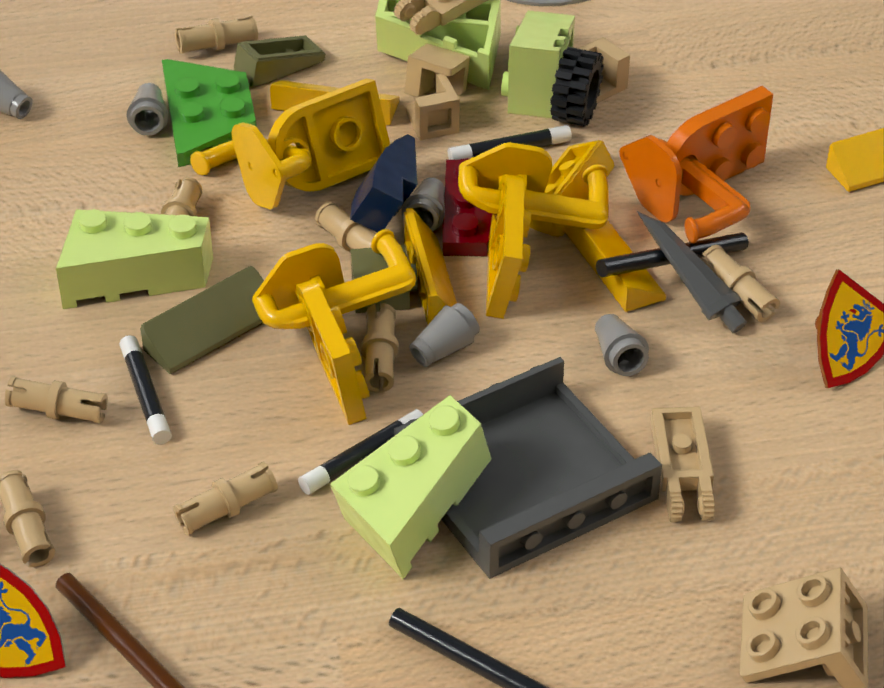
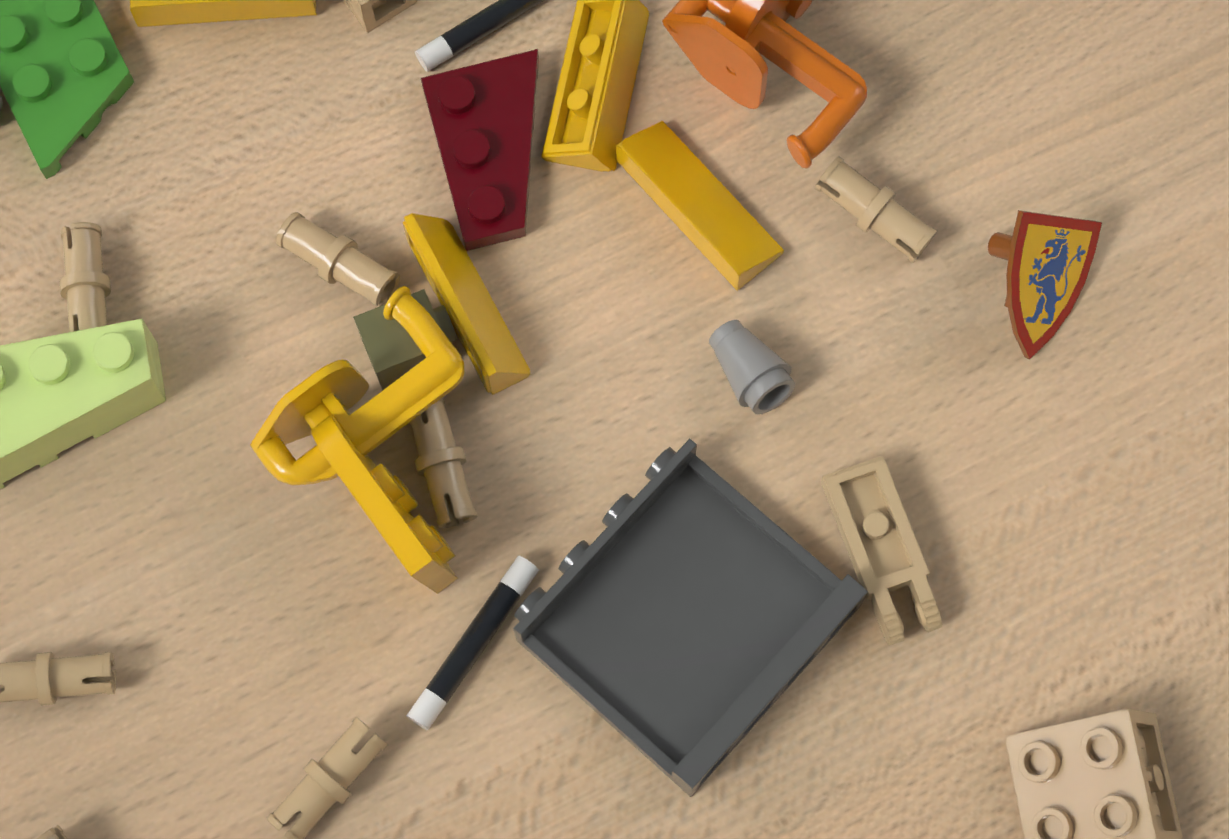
camera: 15 degrees left, 30 degrees up
(145, 390) = (154, 617): bar -> none
(203, 321) = (196, 477): olive slope -> none
(333, 138) = (228, 131): yellow plate -> none
(386, 185) = (360, 169): dark blue slope -> none
(412, 482) = (562, 713): yellowish green wedge -> none
(428, 202) = (420, 175): light grey cone -> none
(445, 334) = (519, 416): light grey cone -> none
(512, 187) = (549, 188): yellow plate -> none
(656, 258) = (771, 199): black bar -> none
(705, 286) = (835, 234): dark grey bar -> none

